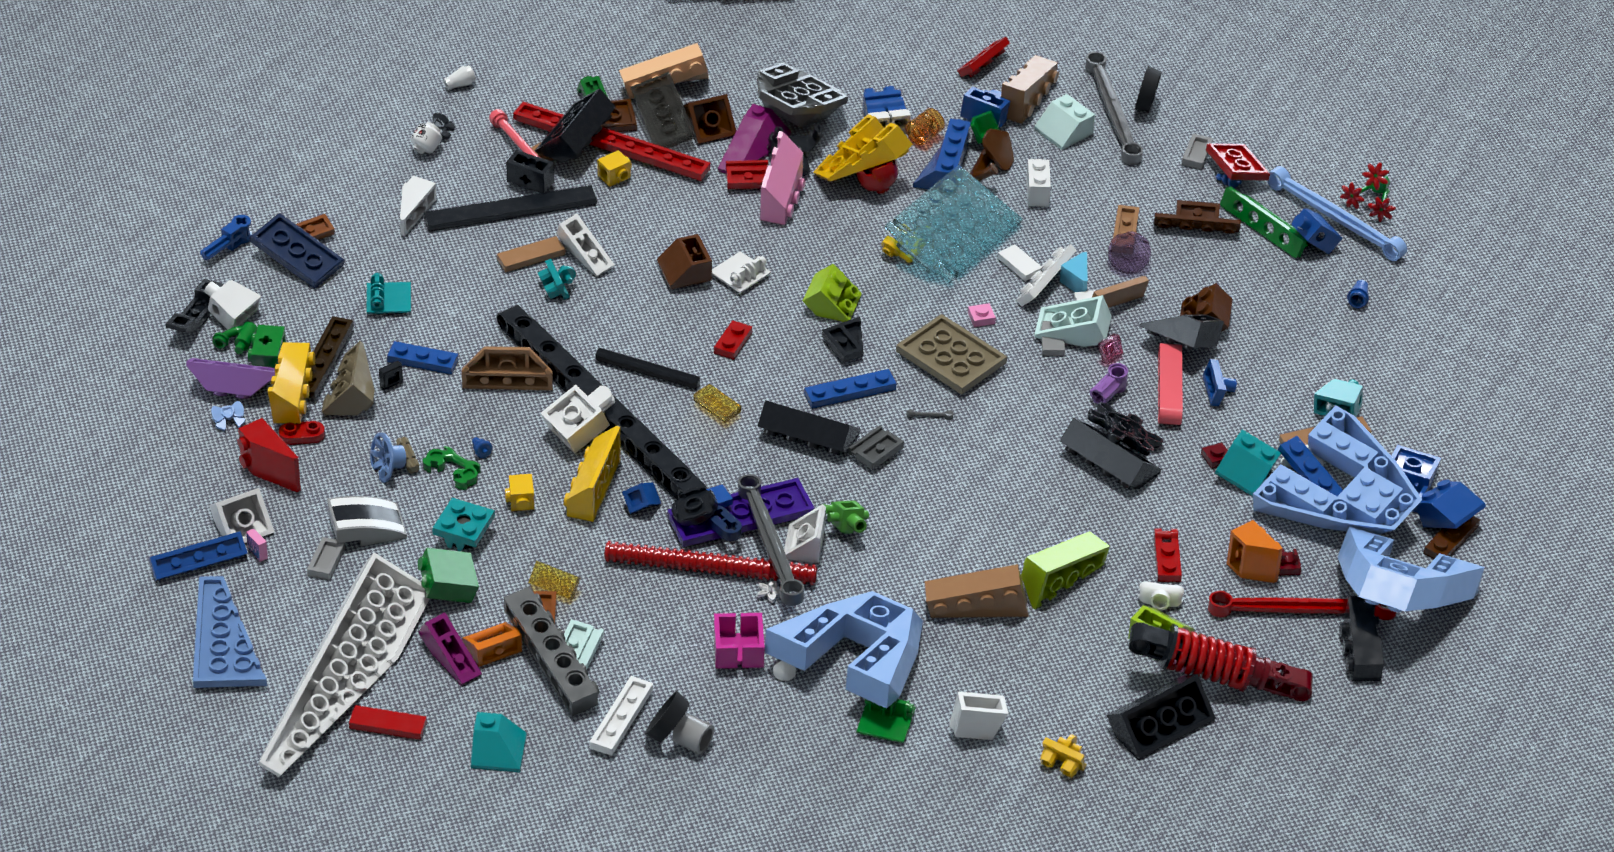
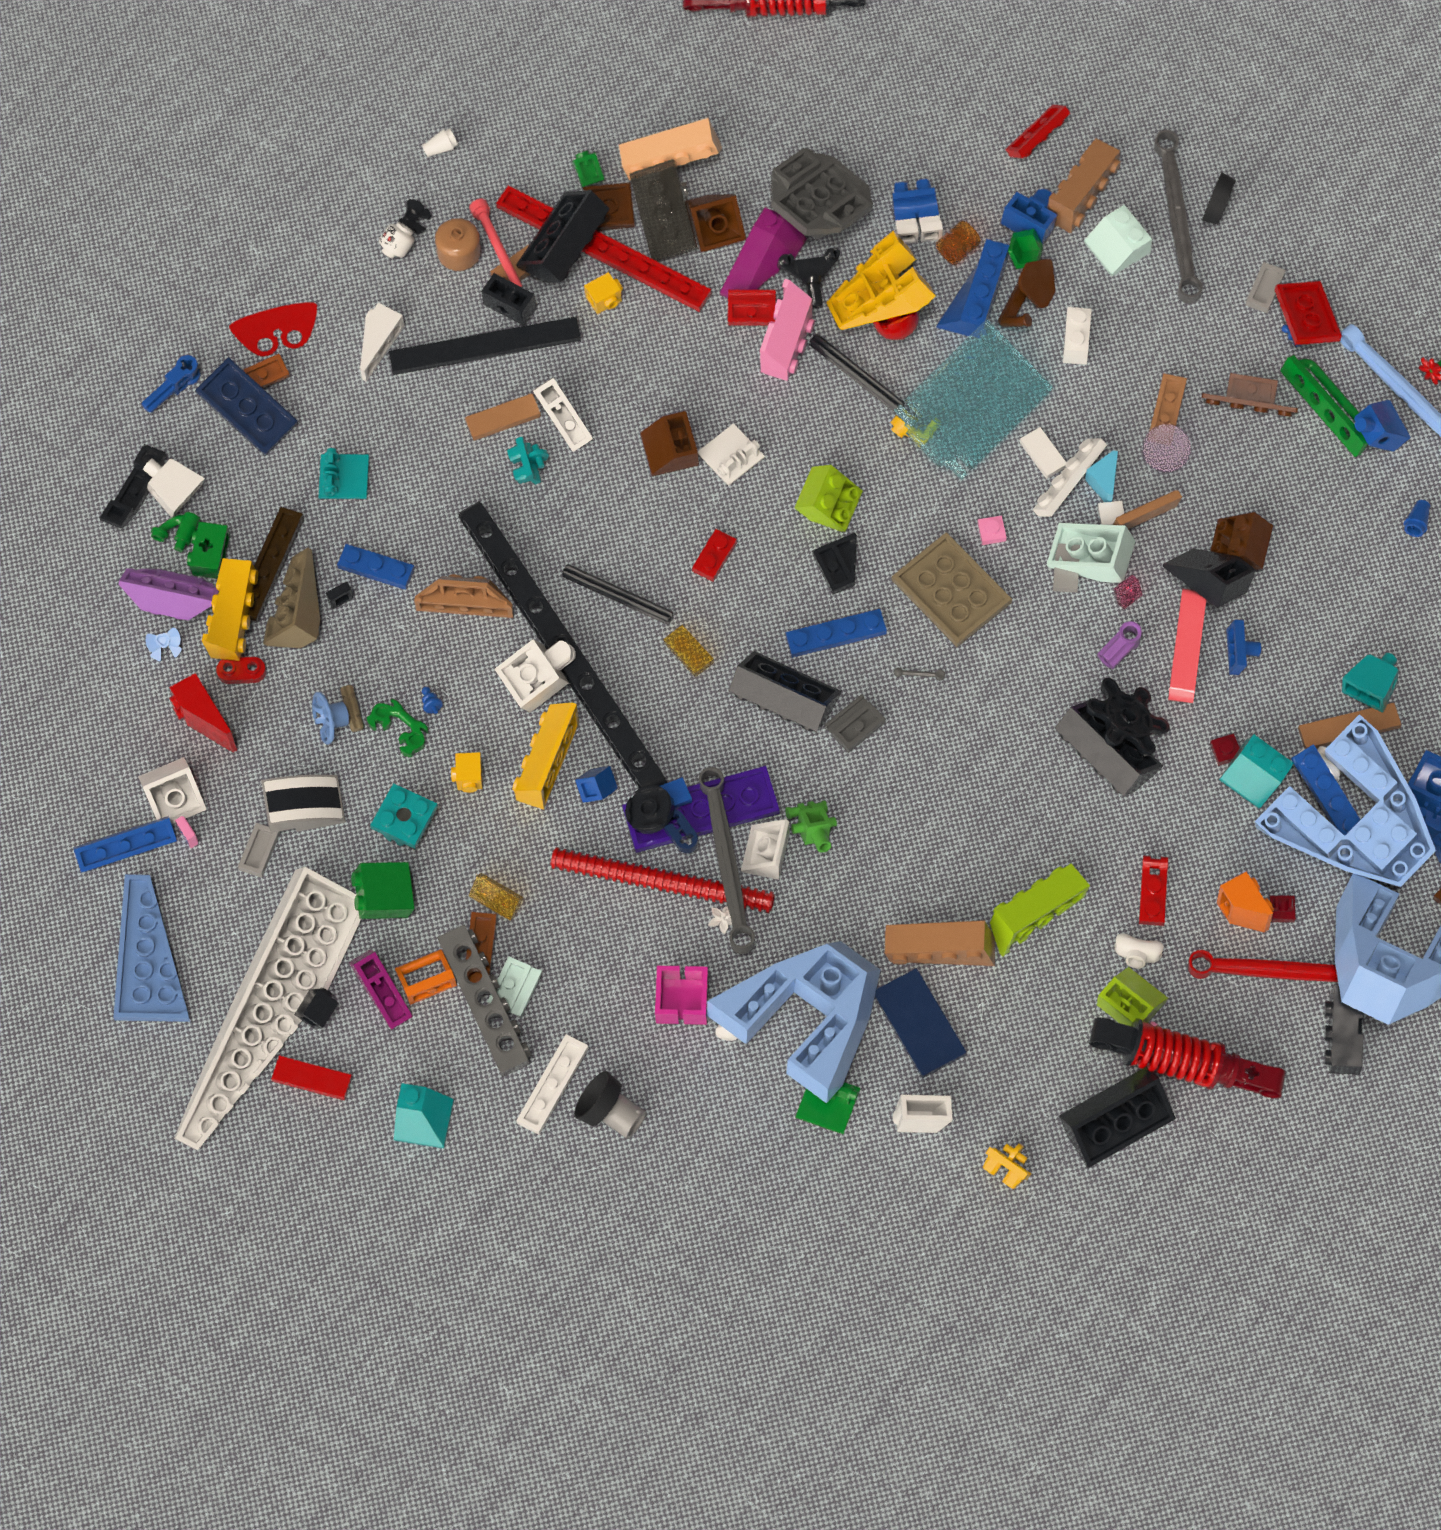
camera: 10 degrees right, 25 degrees up
(299, 204) = (263, 324): none -> red piece
(389, 665) = (316, 1008): none -> black brick
(481, 138) = (458, 244): none -> medium nougat head
(845, 215) = (855, 372): none -> black axle
(964, 657) = (919, 1023): none -> dark blue tile

